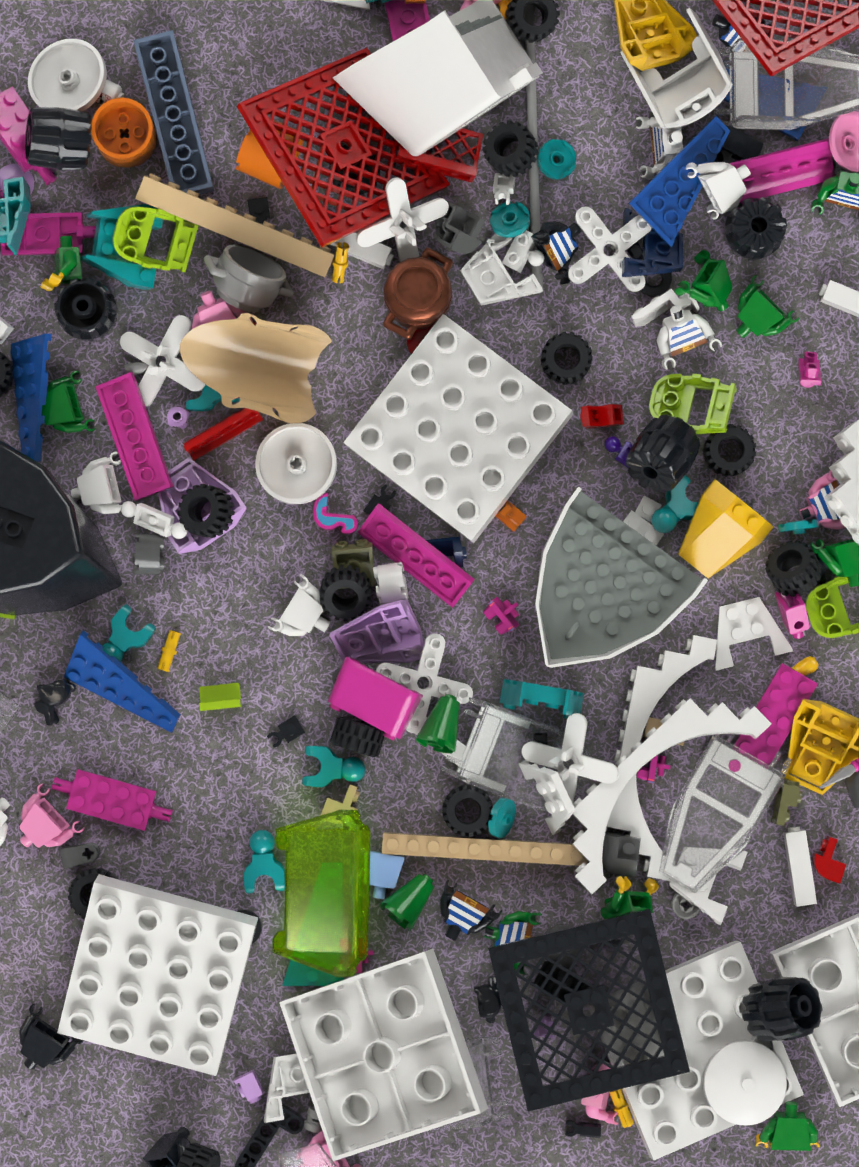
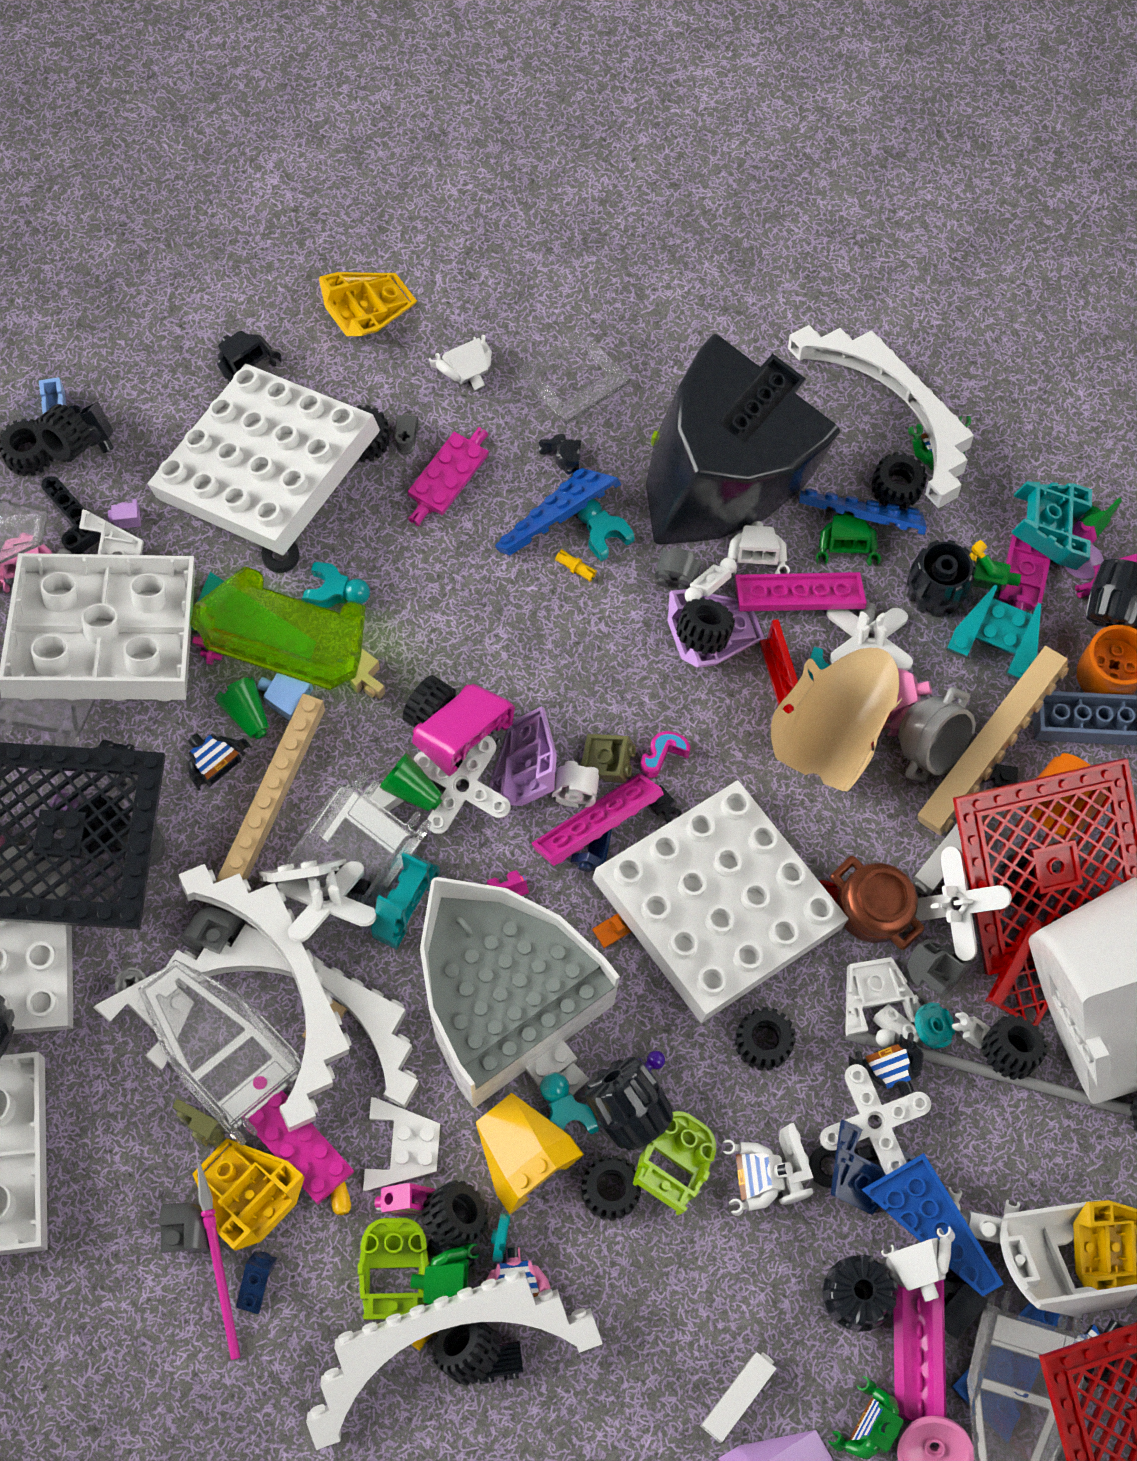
camera: 105 degrees right, 20 degrees down
(43, 823) = (446, 409): bright pink torso -> none
(133, 233) = (1008, 637): lime slope -> none
(182, 421) = (808, 638): lavender brick -> none
(220, 696) = (513, 598): lime panel -> none
(289, 730) = (458, 651): black plate -> none
(296, 463) = (728, 731): white dish -> none
(302, 612) = (574, 695): white torso -> none
(333, 767) = (406, 677): teal piece -> none
(340, 262) = (929, 834): yellow pin -> none
(345, 607) = (573, 725): black tyre -> none
(449, 810) = (305, 777): black tyre -> none
(503, 817) = (293, 820): teal plate -> none
(513, 928) = (175, 800): torso -> none
(565, 155) = (1003, 1098): teal plate -> none
(601, 416) = (690, 1056): red brick -> none
(628, 901) = (154, 922): green torso -> none
(649, 773) = (285, 989): dark pink hips -> none
(710, 285) = (805, 1222): green torso -> none
(760, 313) = (758, 1274): green torso -> none
(799, 867) = (122, 1120): white brick -> none
(809, 370) = (677, 1310): dark pink hips -> none
(824, 865) = (111, 1150): red brick -> none

